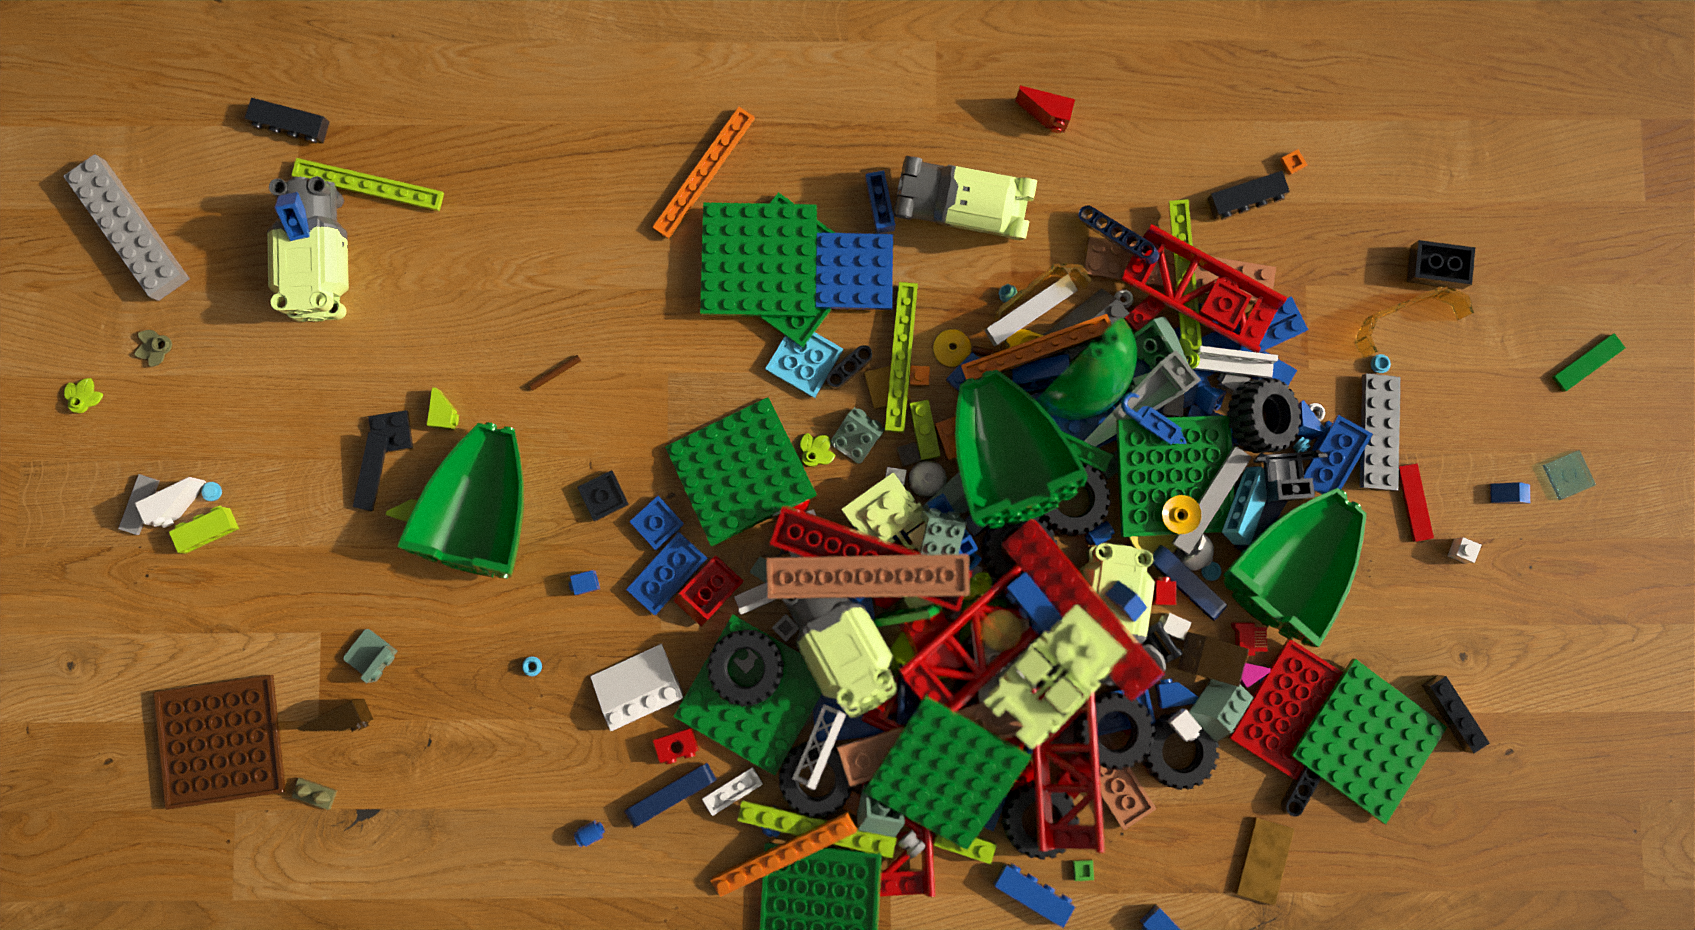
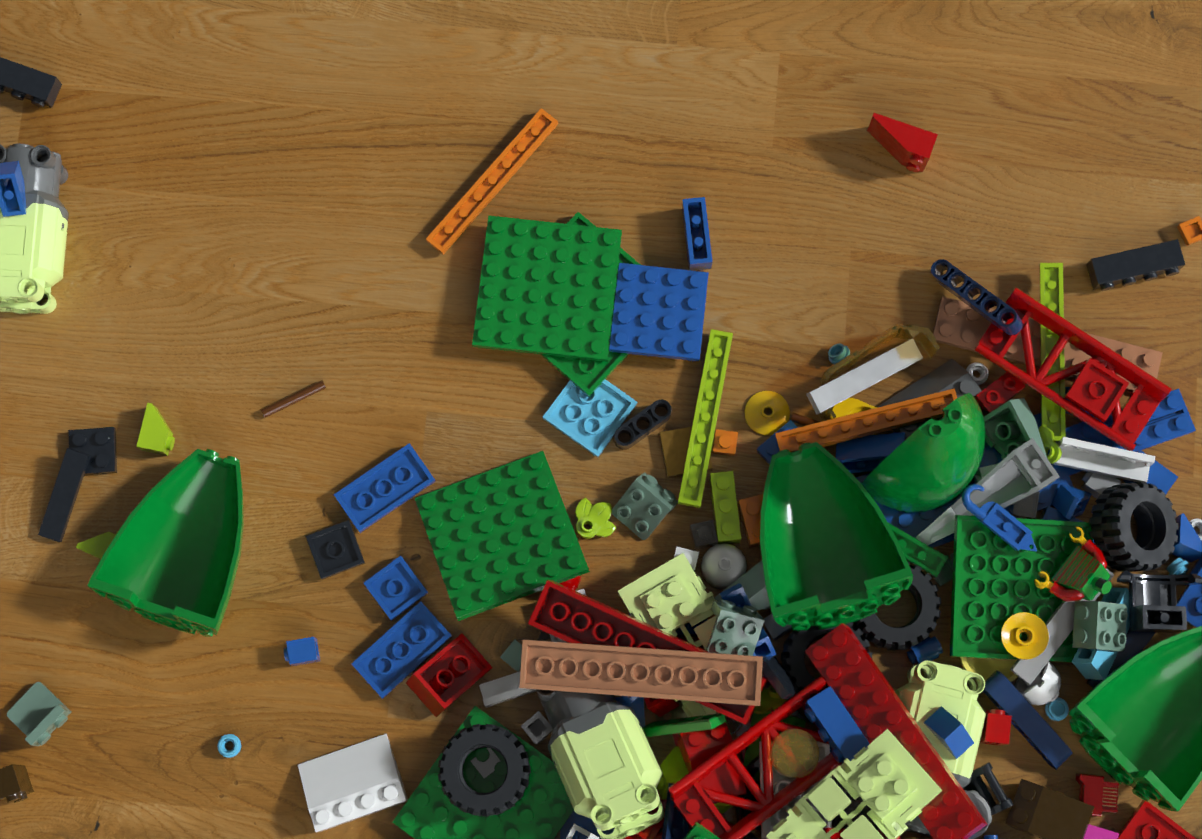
camera: 10 degrees right, 5 degrees down
(370, 184) = (102, 160): lime plate -> none
(639, 440) = (384, 488): none -> blue plate
(964, 198) = (796, 238): piece -> none
(982, 569) = (779, 678): none -> black tile
(1175, 626) = (1007, 771): white brick -> none
(1224, 459) = (1081, 573): none -> torso
(1242, 500) = (1099, 625): none -> sand green bracket

